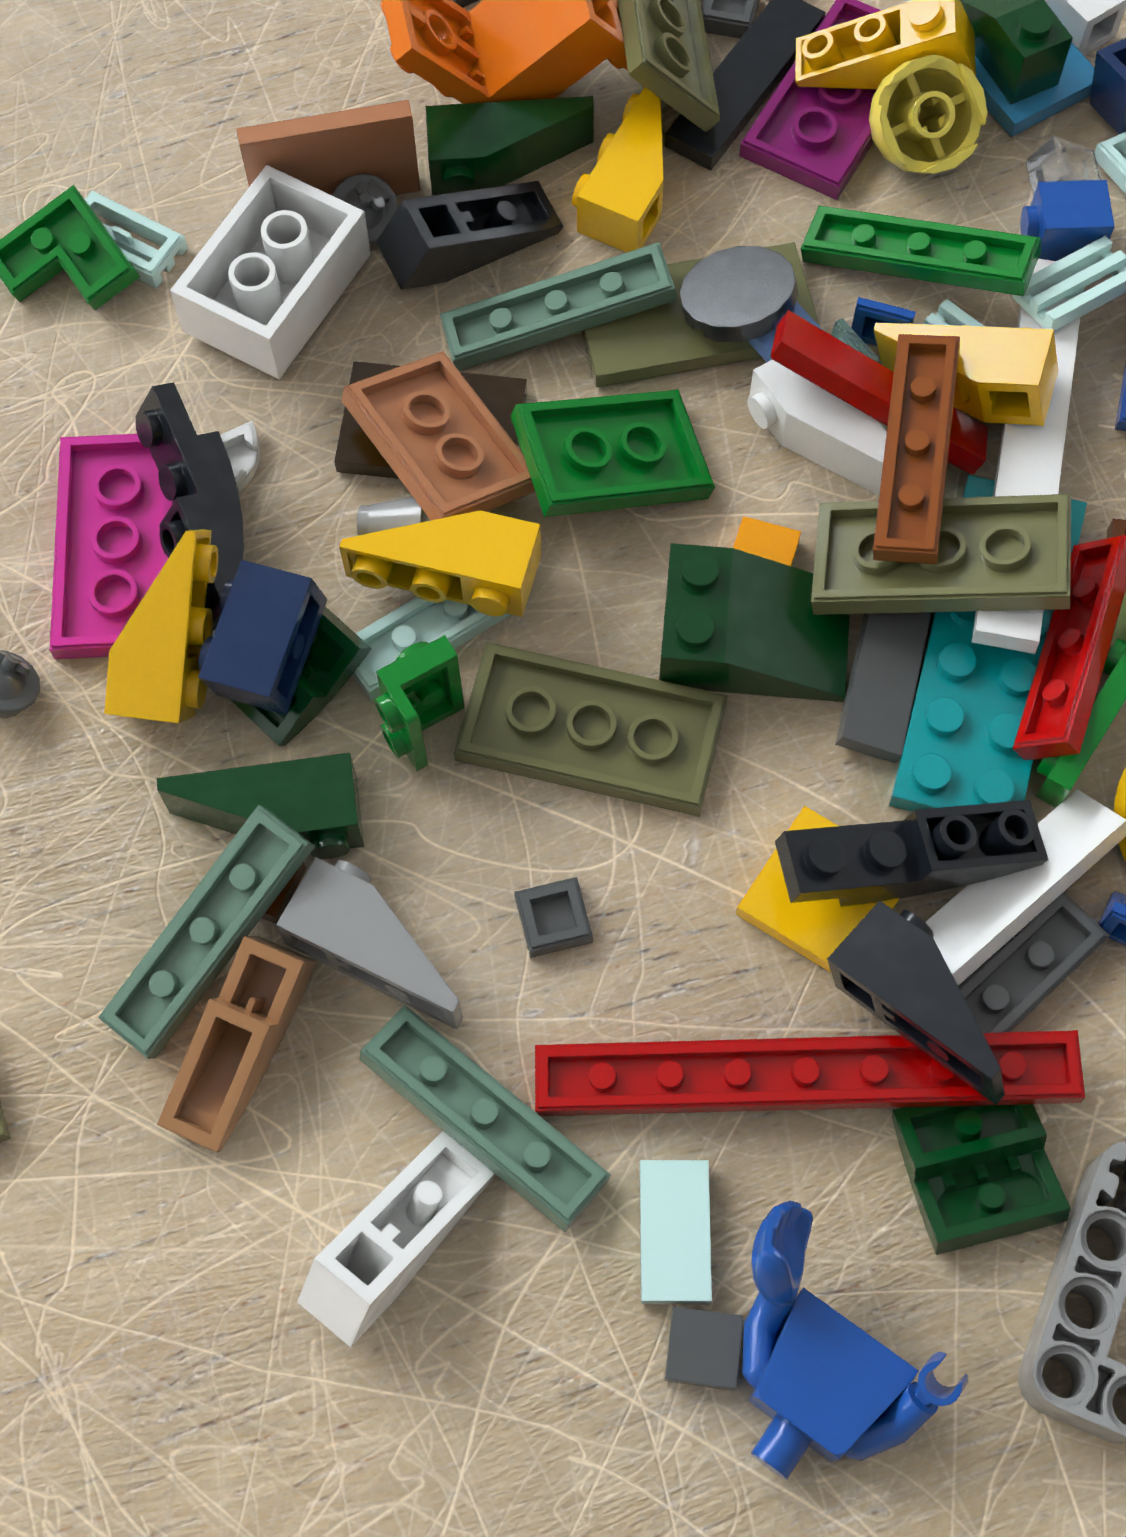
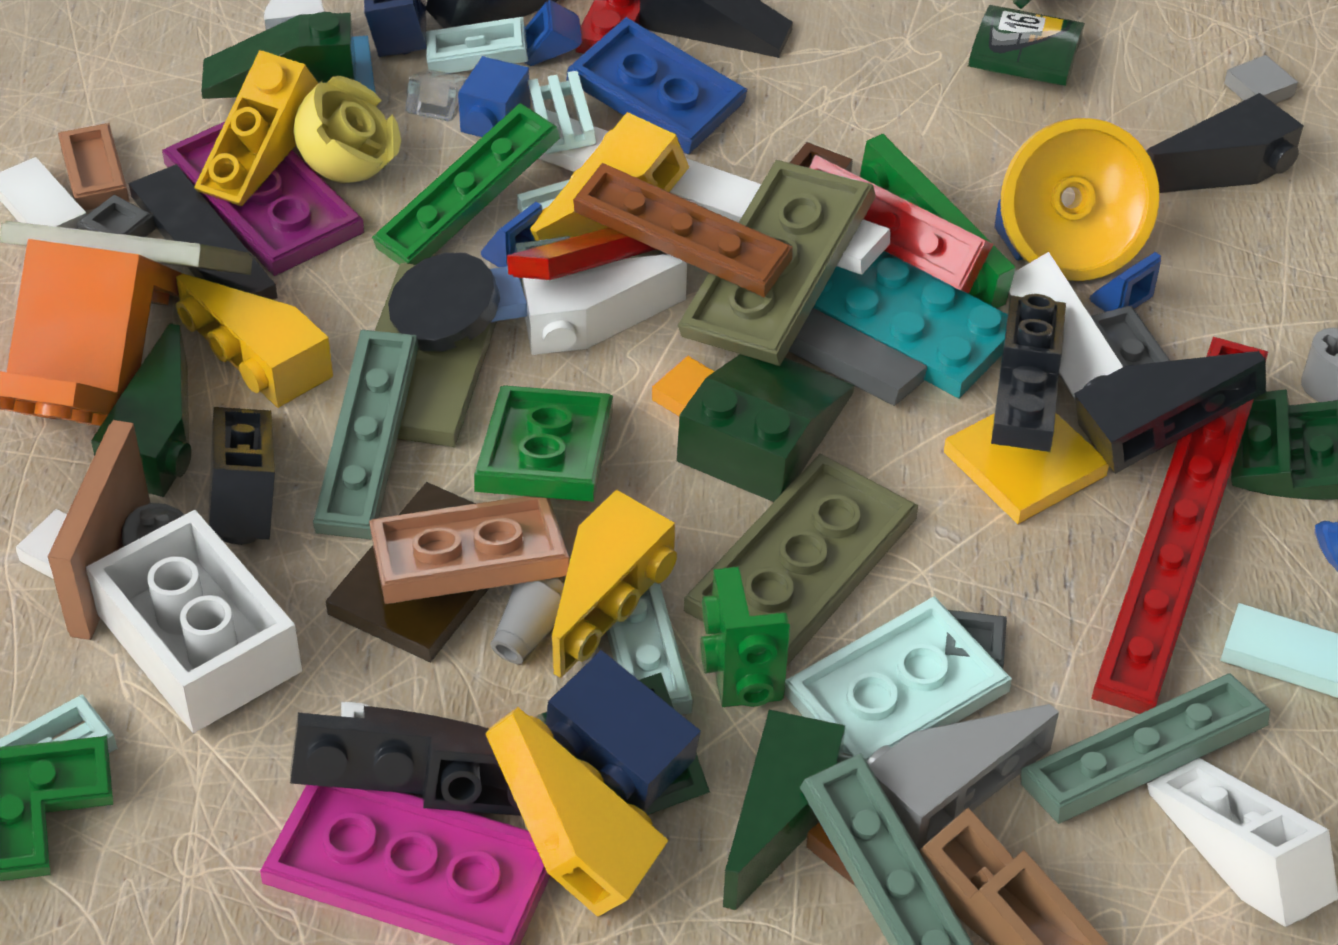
camera: 70 degrees left, 20 degrees down
(463, 863) = (899, 680): none -> light aqua tile

